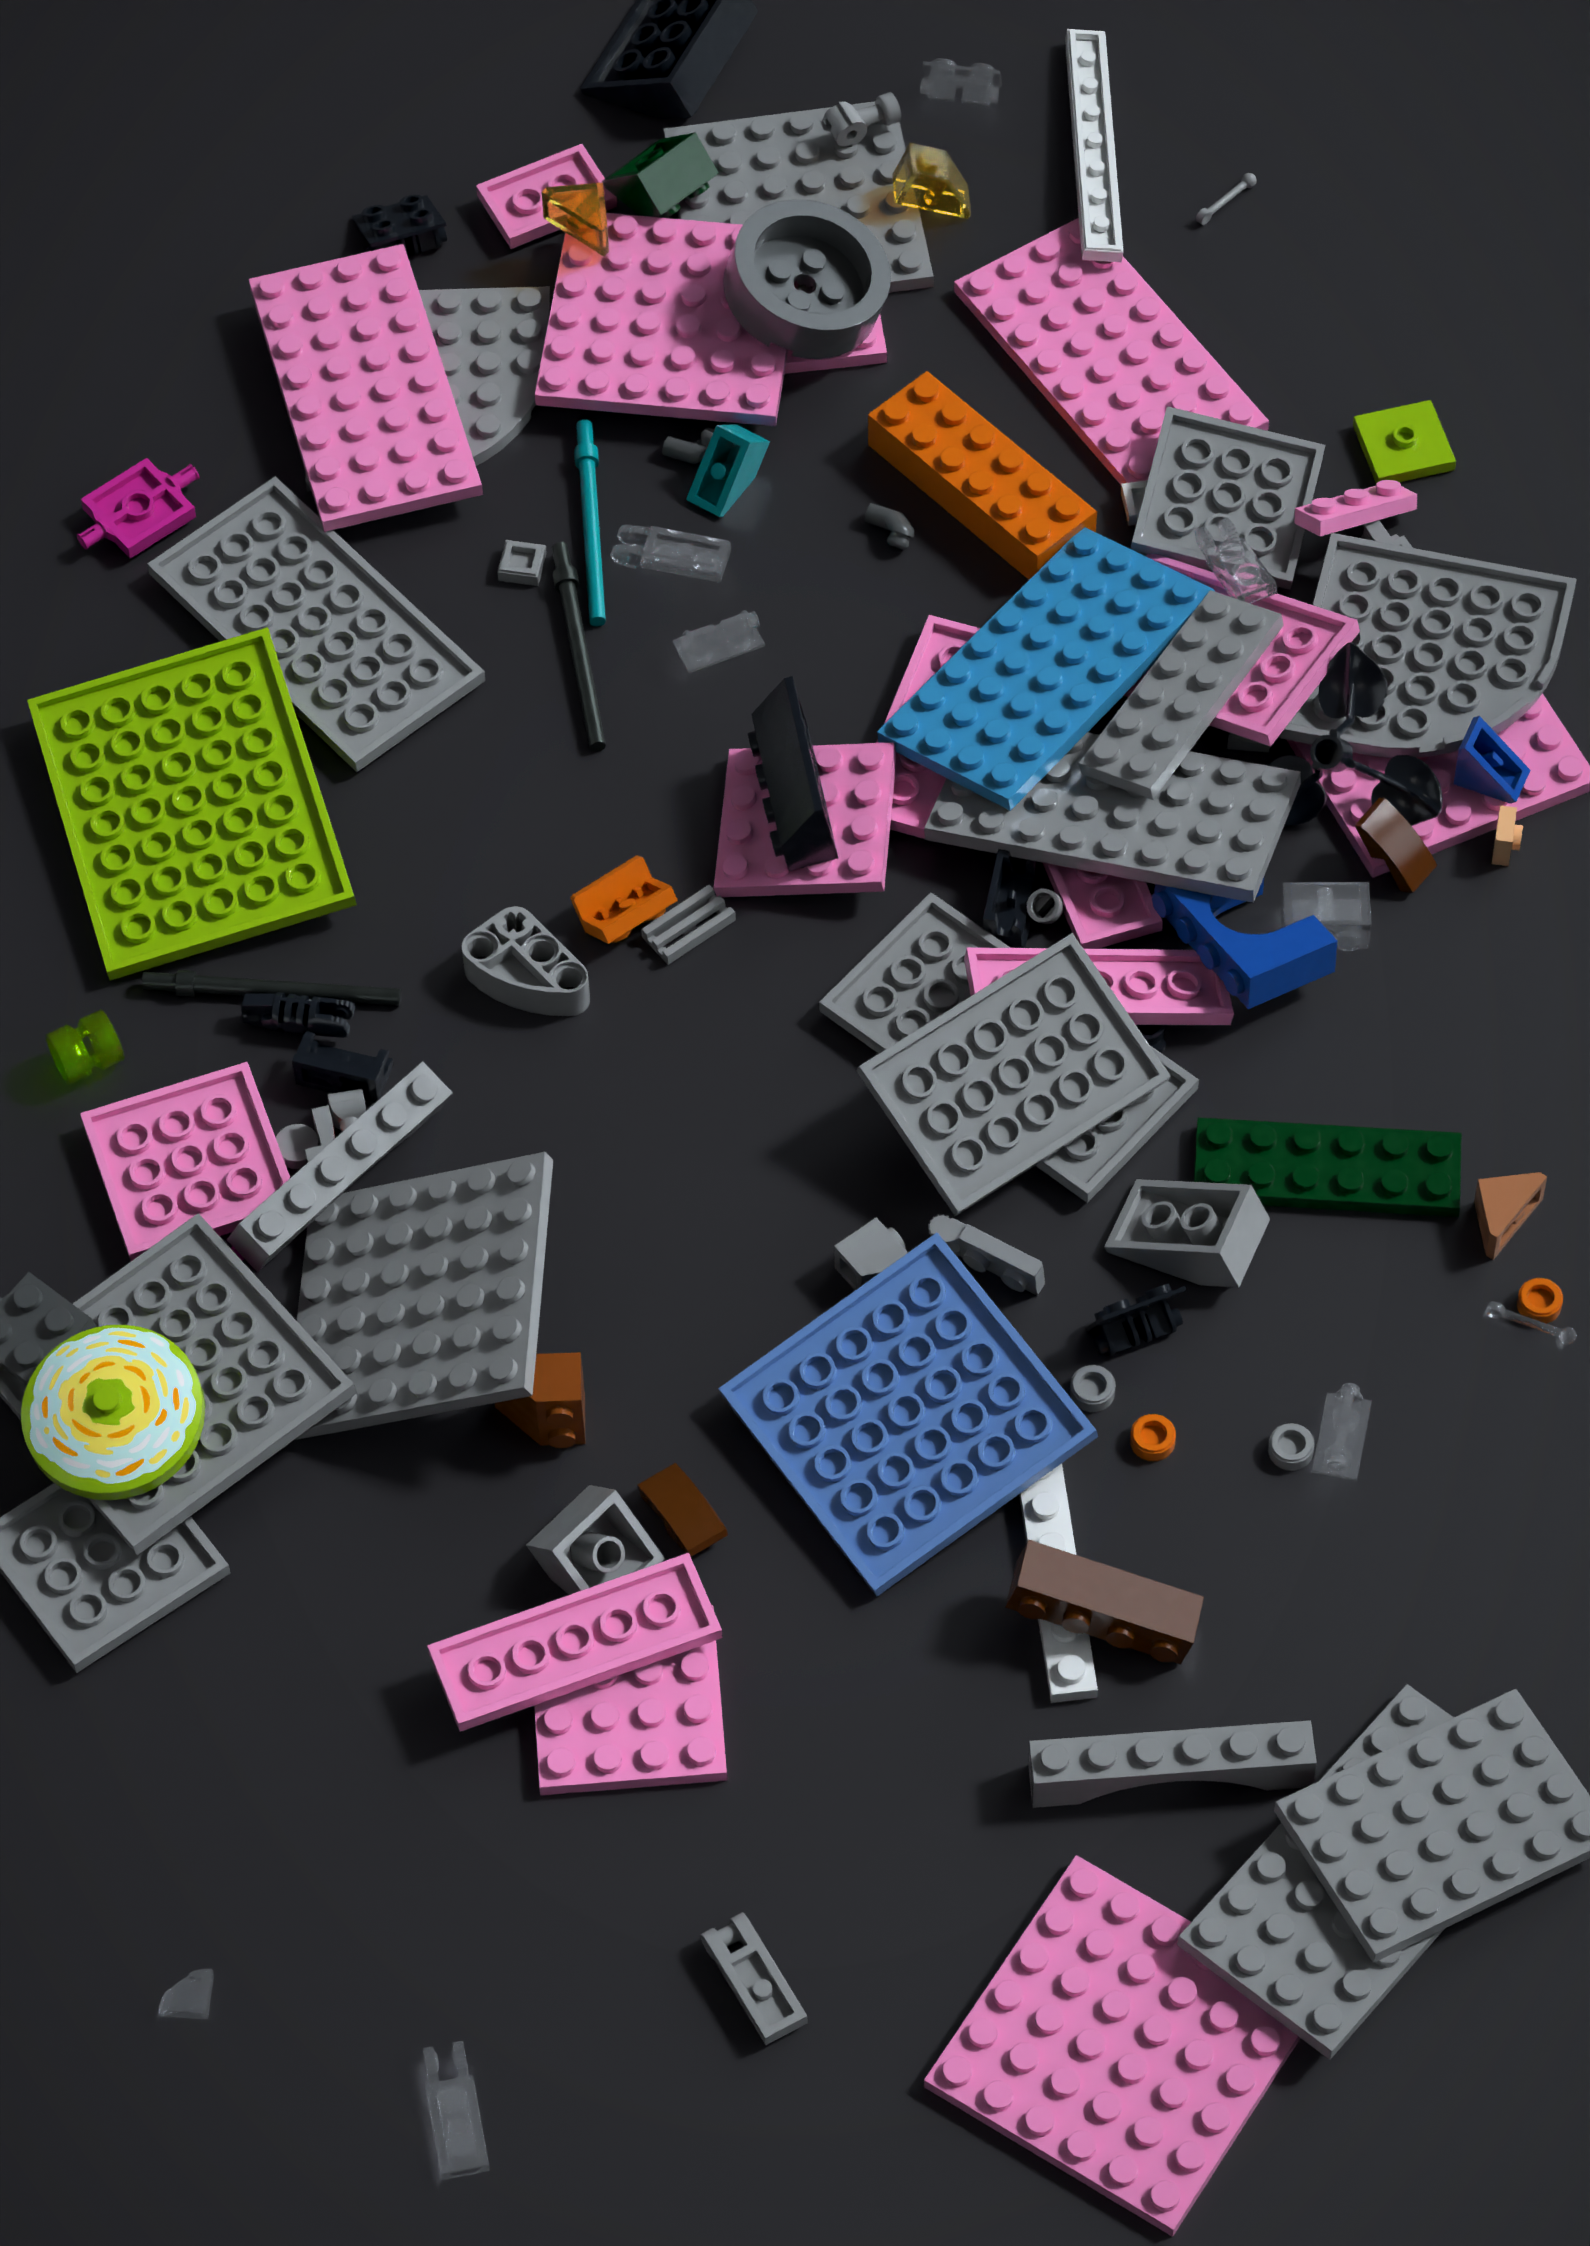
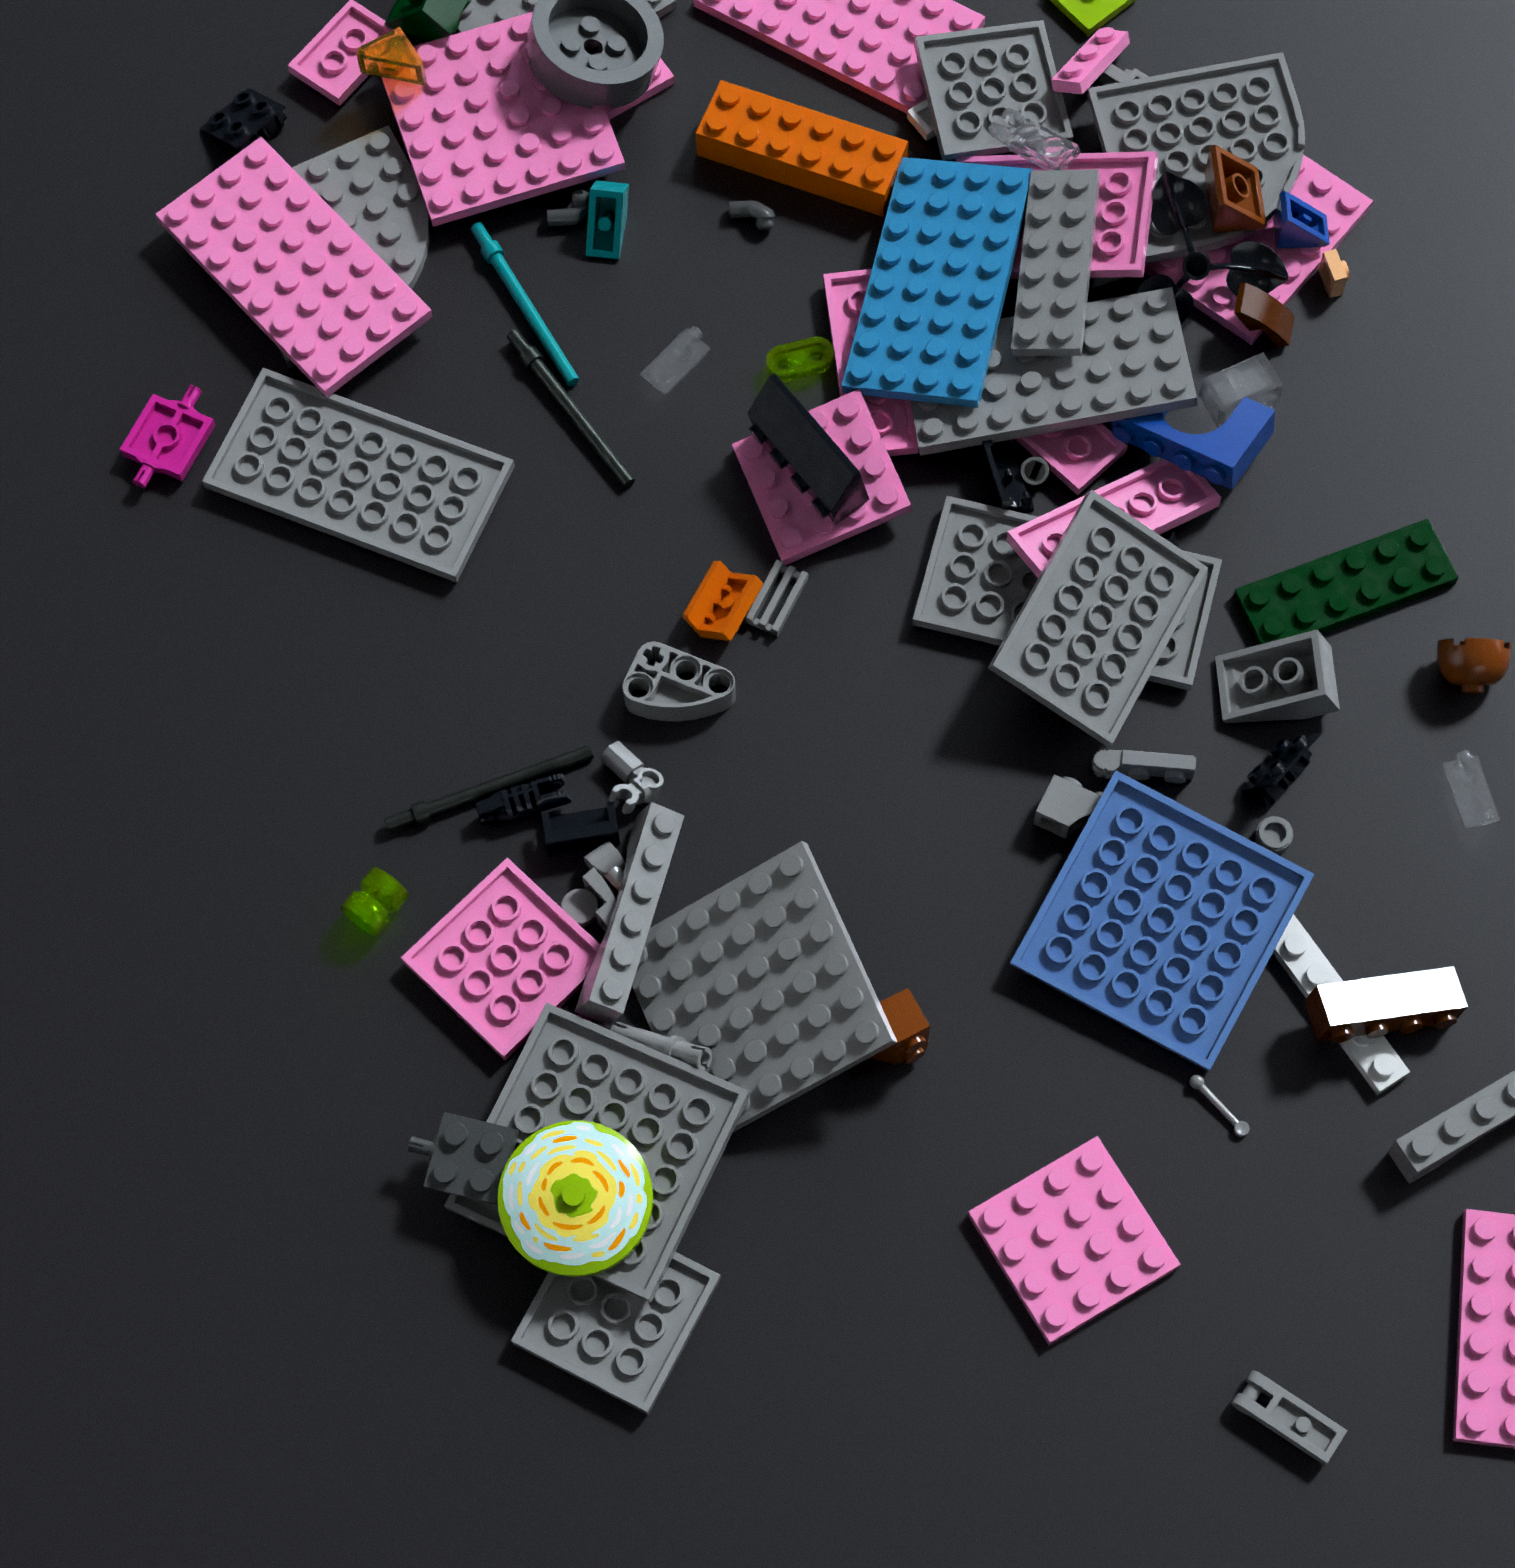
camera: 25 degrees left, 10 degrees up
(190, 803) = (346, 665): lime plate -> none
(304, 1312) = (673, 1046): none -> light grey pin
(431, 1042) = (641, 782): none -> light grey bar
(521, 562) = (489, 358): light grey tile -> none
(574, 1642) = (1019, 1217): bright pink plate -> none
(593, 1542) = (987, 1132): light grey slope -> none
(672, 552) = (601, 303): clear hinge -> none
(683, 1509) = (1032, 1069): reddish brown slope -> none
(854, 692) = (798, 358): none -> clear neon green plate
(878, 1668) = (1241, 1128): none -> light grey hinge
(1153, 1437) = (1338, 854): orange tile -> none
(1291, 1447) = (1439, 816): light grey tile -> none
(1418, 1298) = (1473, 662): none -> dark orange cylinder
(1426, 698) = (1233, 192): none -> dark orange slope
(1505, 1205) = (1489, 565): nougat slope -> none

